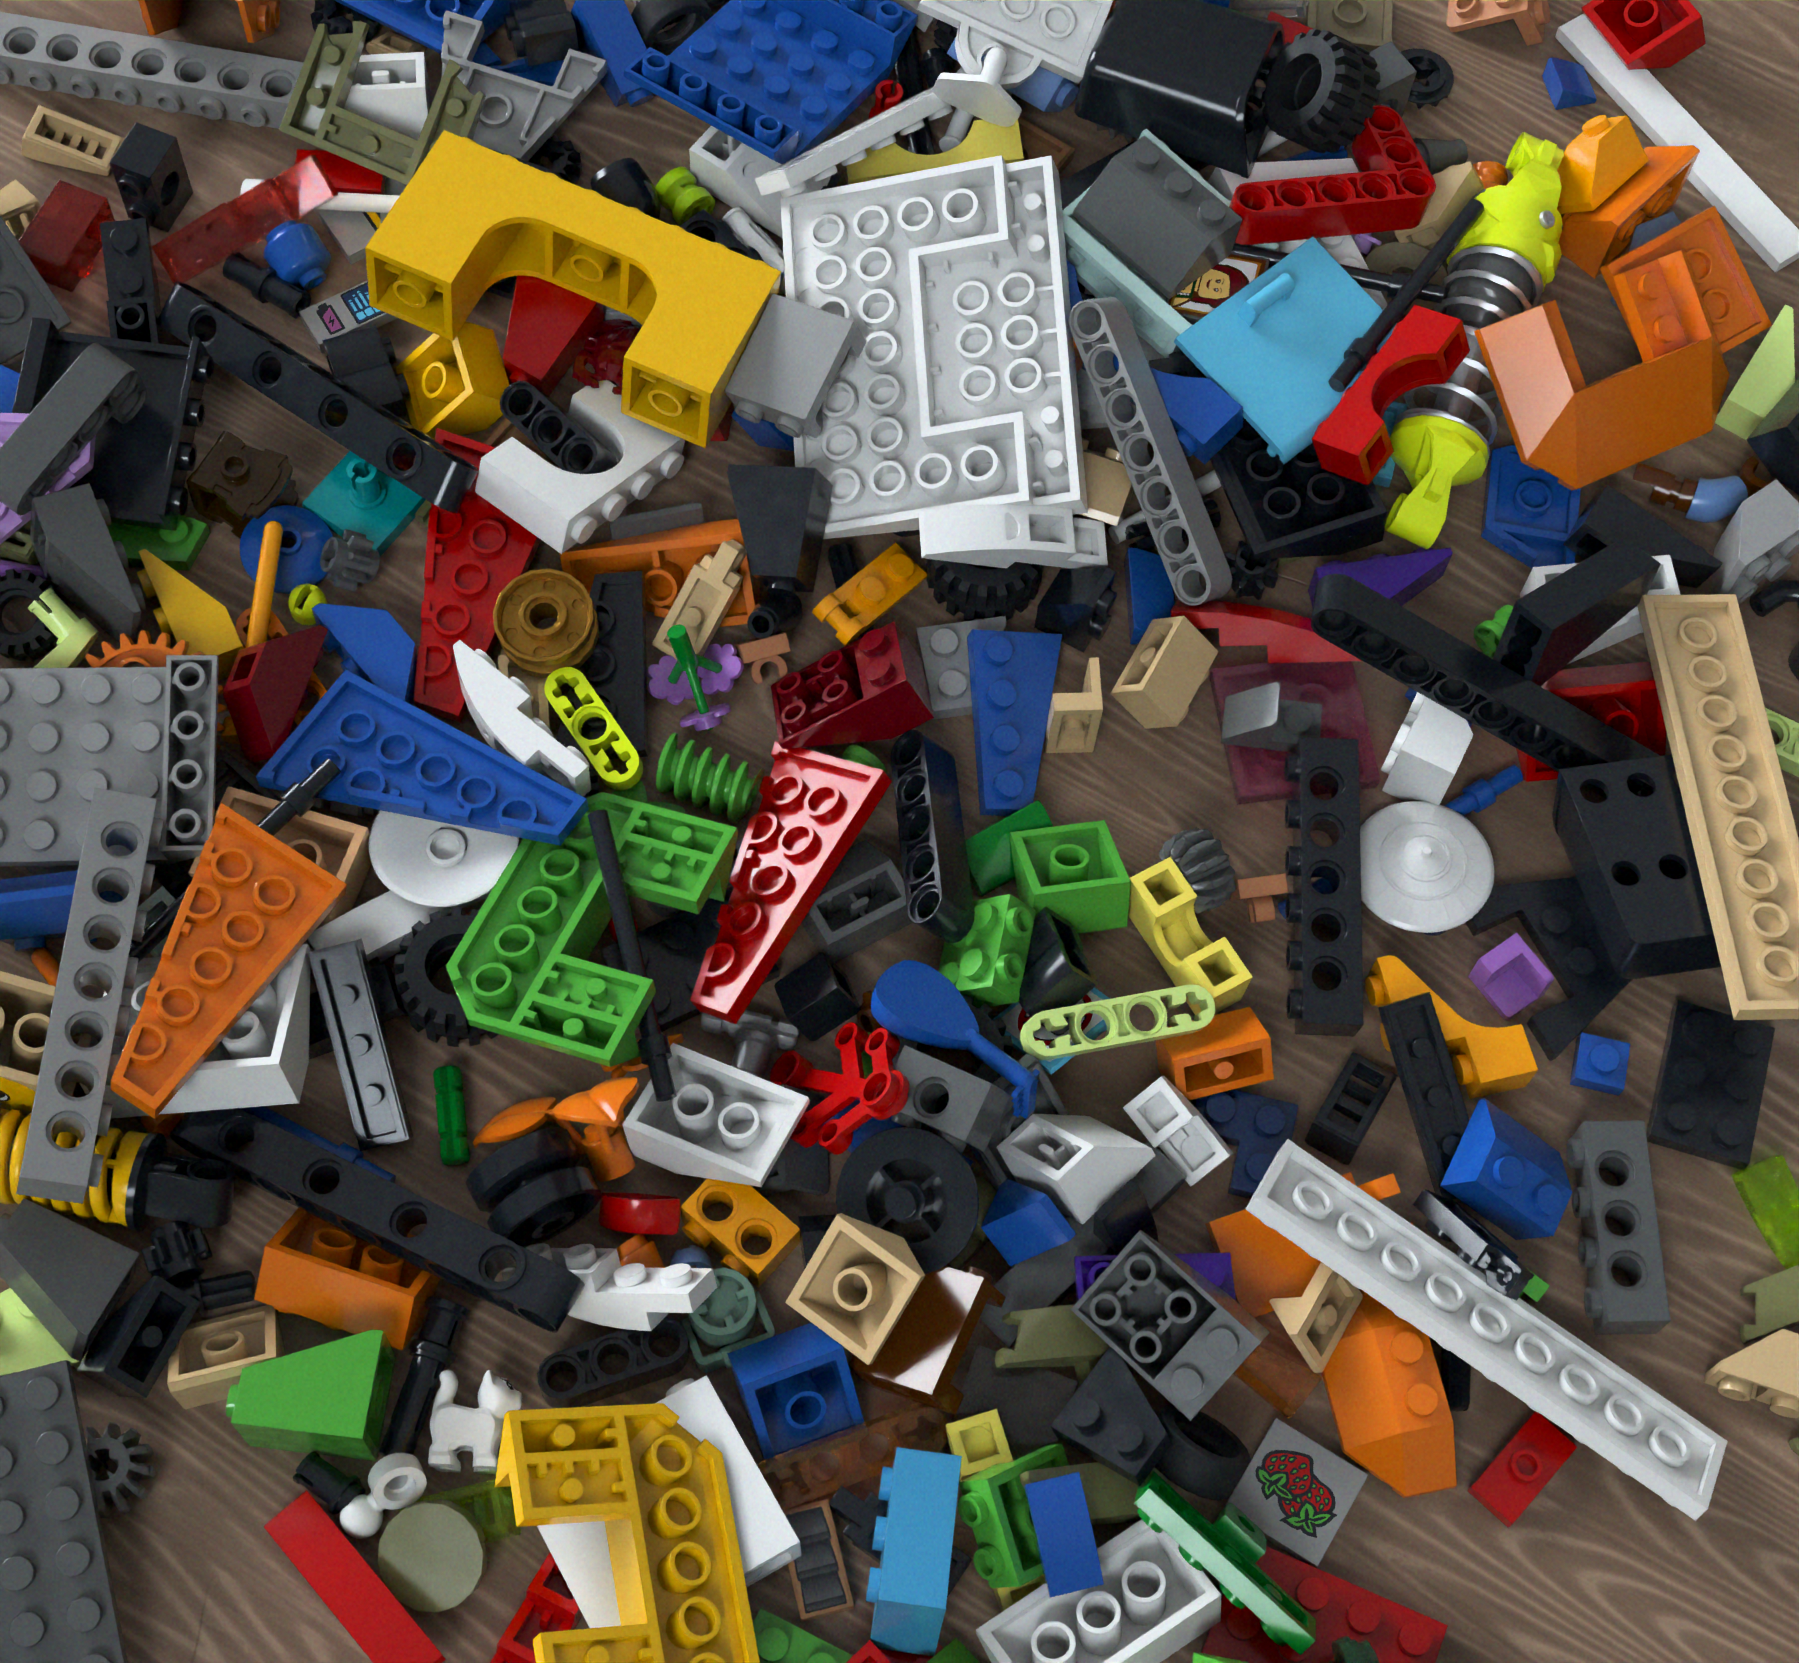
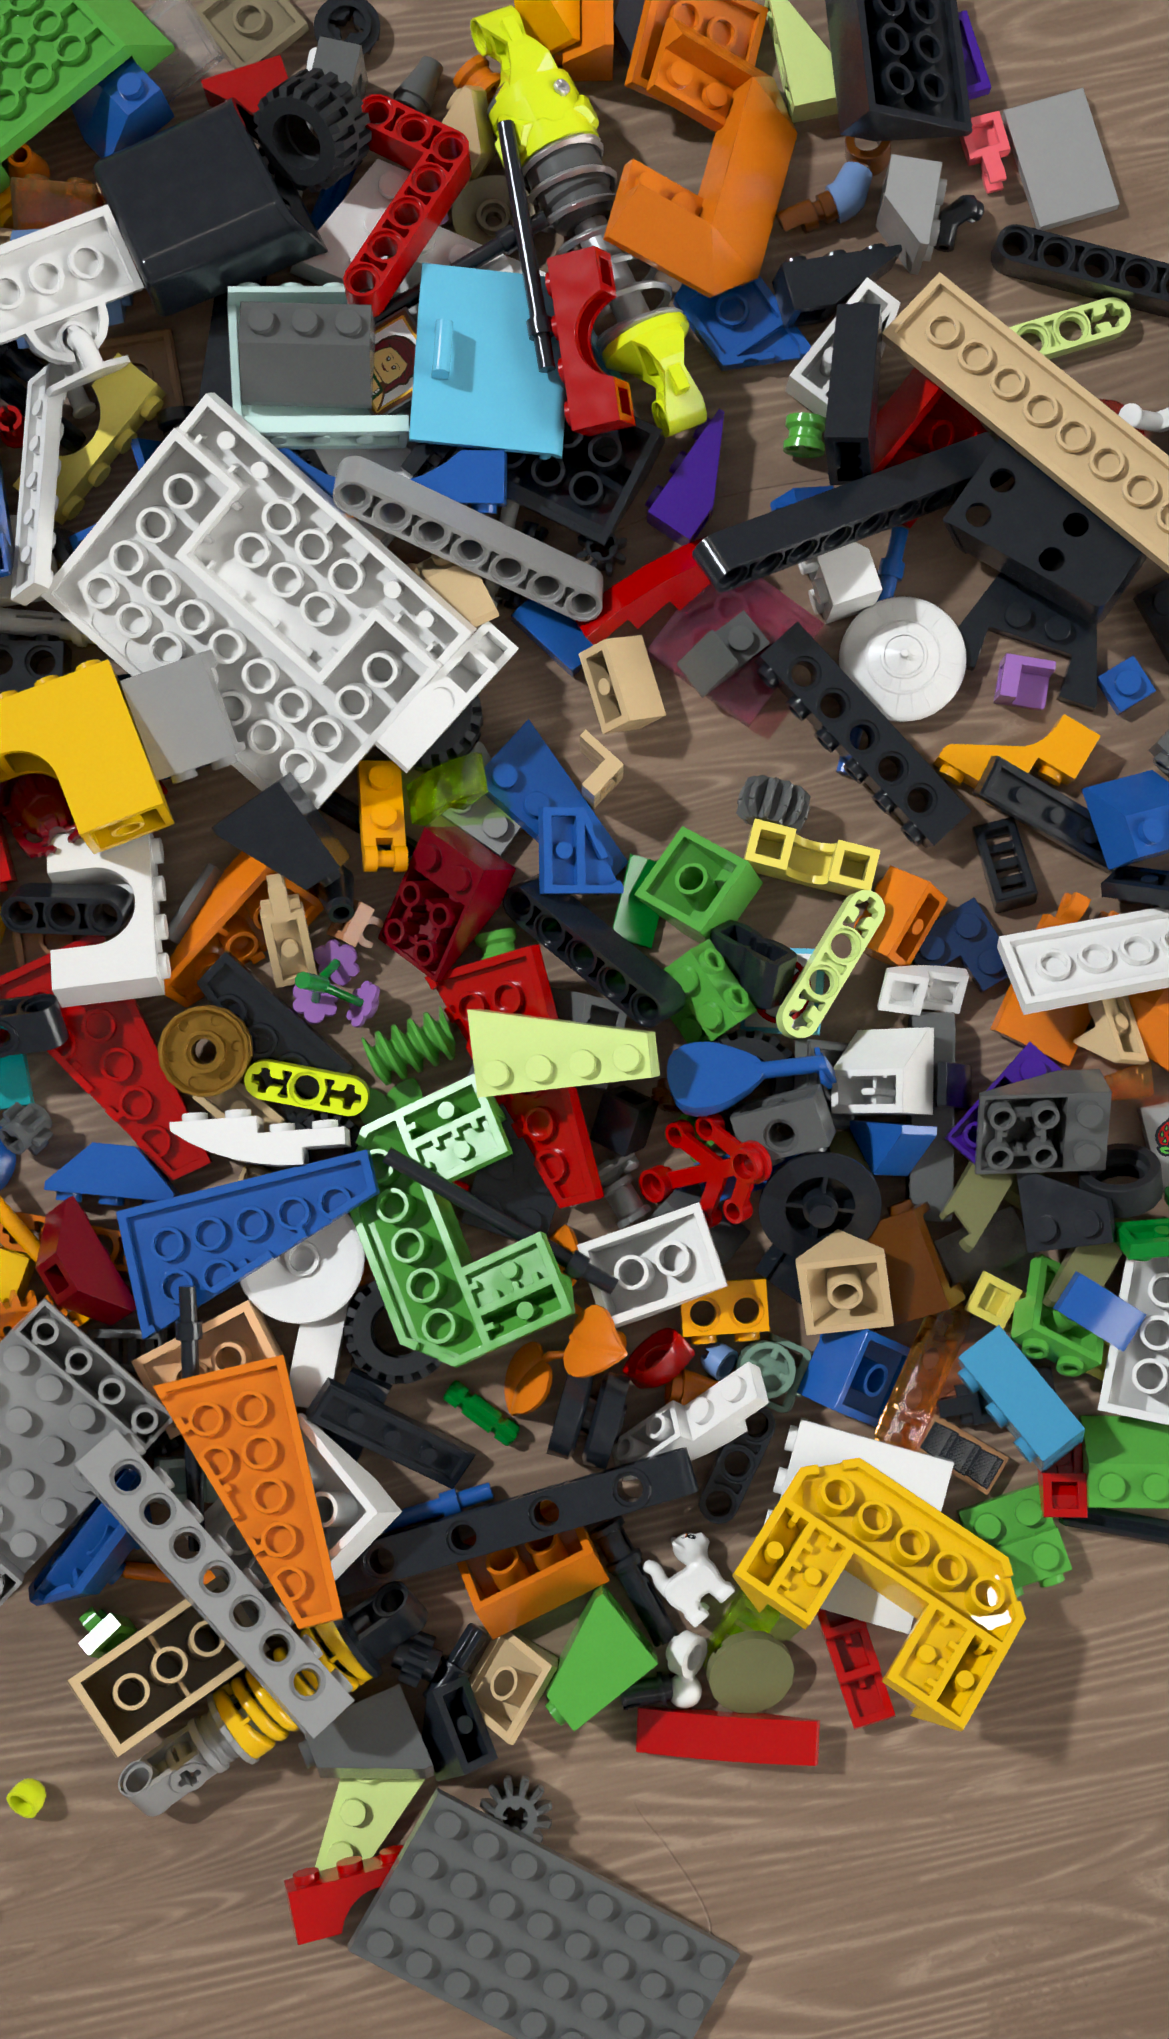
camera: 40 degrees left, 20 degrees up
(314, 597) = (35, 1177): neon yellow hinge -> none
(811, 857) = (544, 1053): none -> yellowish green wedge
(946, 617) = (447, 786): none -> clear neon green slope
(990, 751) = (572, 855): none -> blue wing
(1078, 605) = (521, 691): black slope -> none
(1258, 895) = (820, 778): nougat tile -> none

